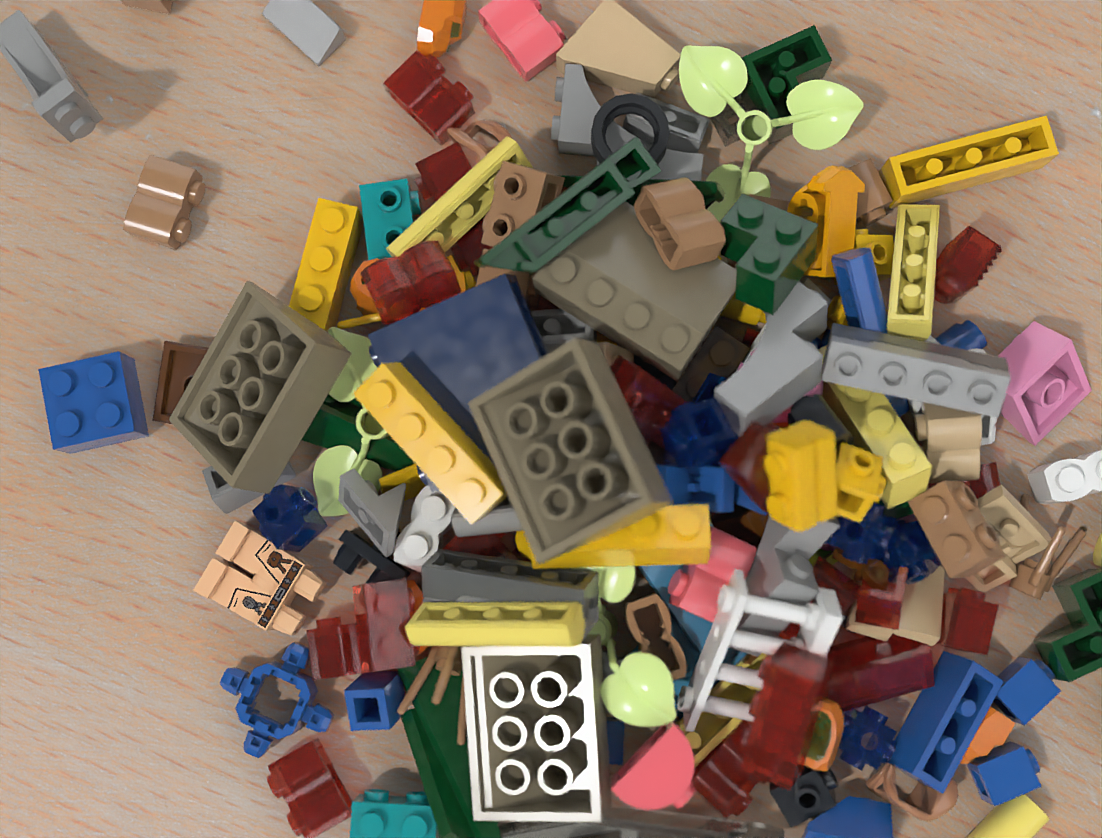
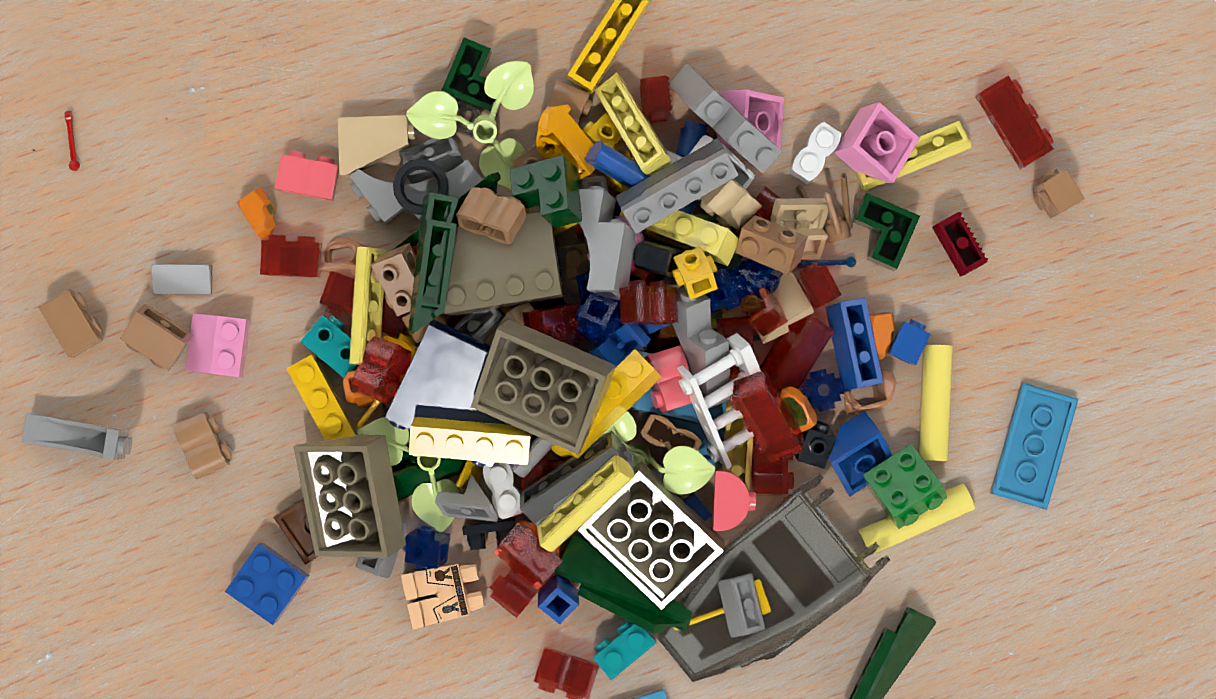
camera: 50 degrees left, 5 degrees up
(220, 52) = (156, 337): none -> medium nougat brick
(237, 681) = (478, 655): blue piece -> none
(278, 121) = (218, 345): none -> bright pink slope
(449, 663) = (578, 544): medium nougat plant -> none
(802, 475) = (667, 295): yellow brick -> none
(1011, 626) = (850, 262): none -> clear blue hinge
(1019, 329) = (724, 118): none -> light grey arch
(1025, 689) = (882, 290): blue brick -> none

